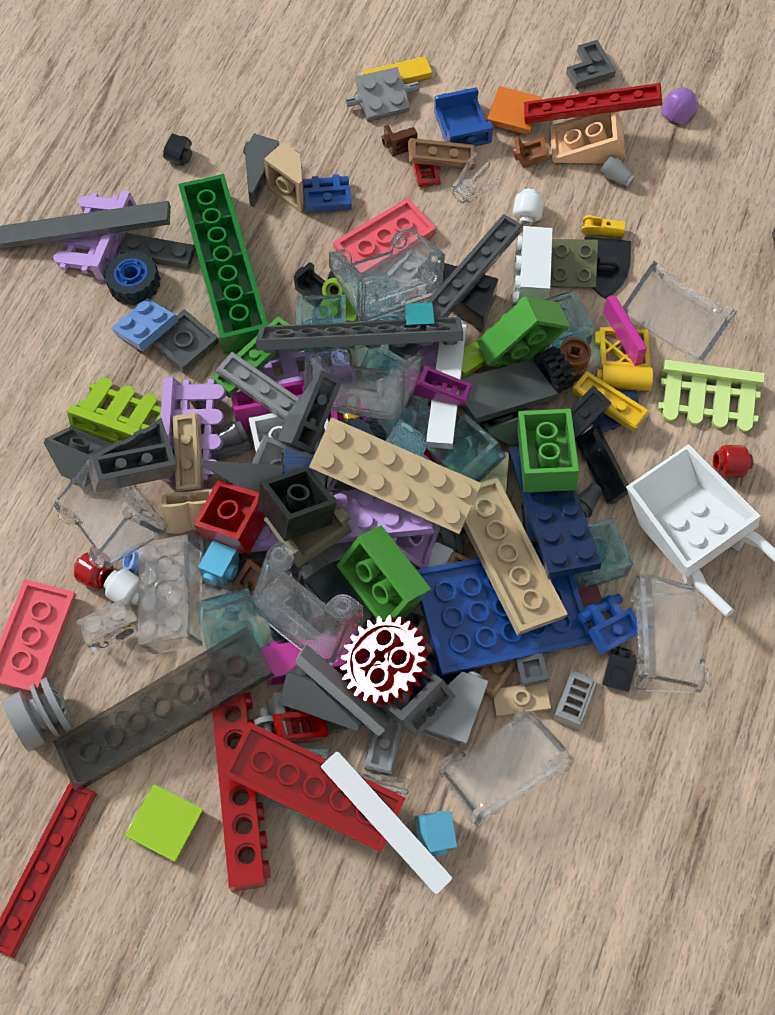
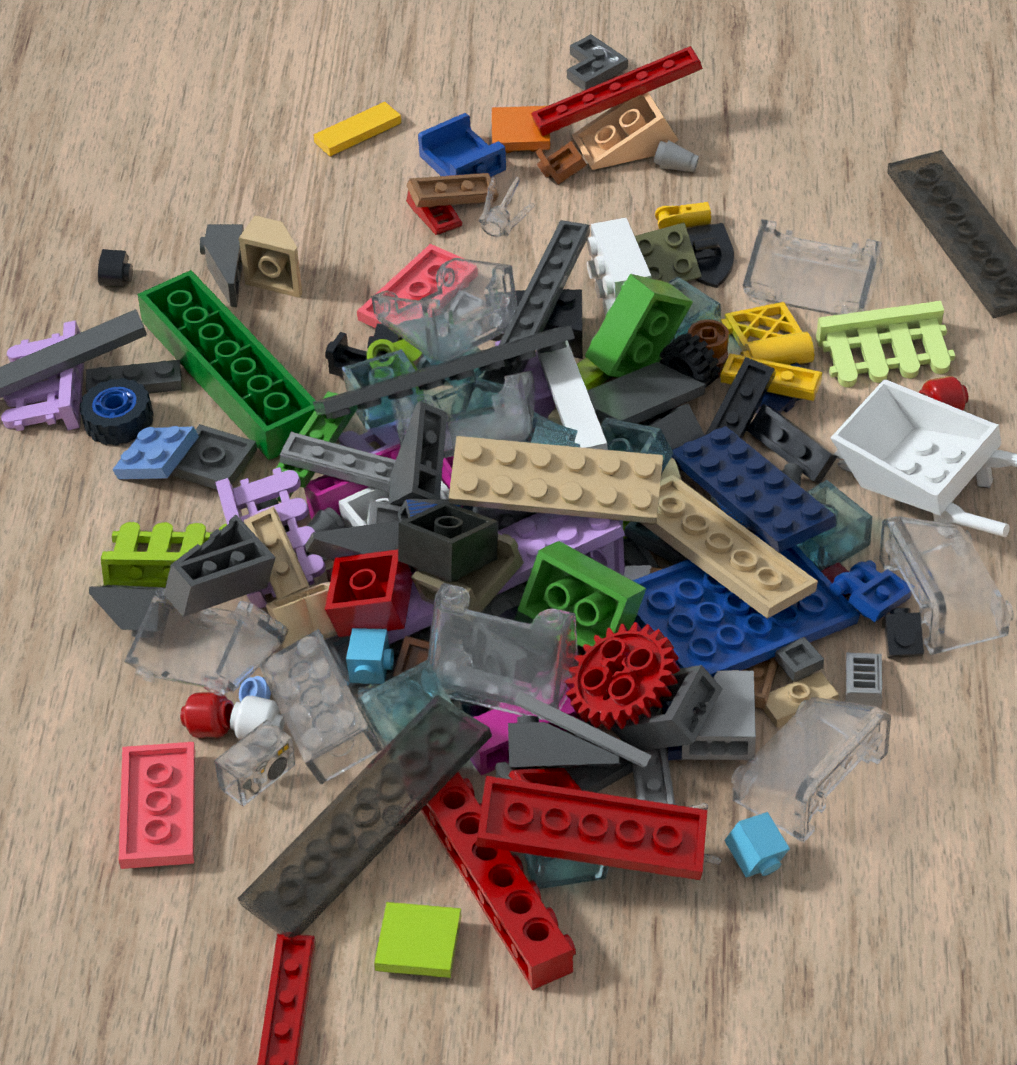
camera: 15 degrees left, 20 degrees down
(35, 715) = (209, 867): light grey wheel -> none
(323, 198) = (328, 267): blue plate -> none
(382, 94) = (348, 151): light grey plate -> none
(386, 822) = (696, 839): white sticker -> none
(397, 142) = (391, 193): reddish brown bracket -> none
(419, 313) = (506, 335): teal sticker -> none
(427, 387) = (567, 394): magenta slope -> none
(528, 207) = (583, 210): white head -> none
(547, 450) = (721, 427): bright green brick -> none
(625, 330) = (757, 304): dark pink tile -> none
(680, 105) = (721, 75): medium lavender hair -> none

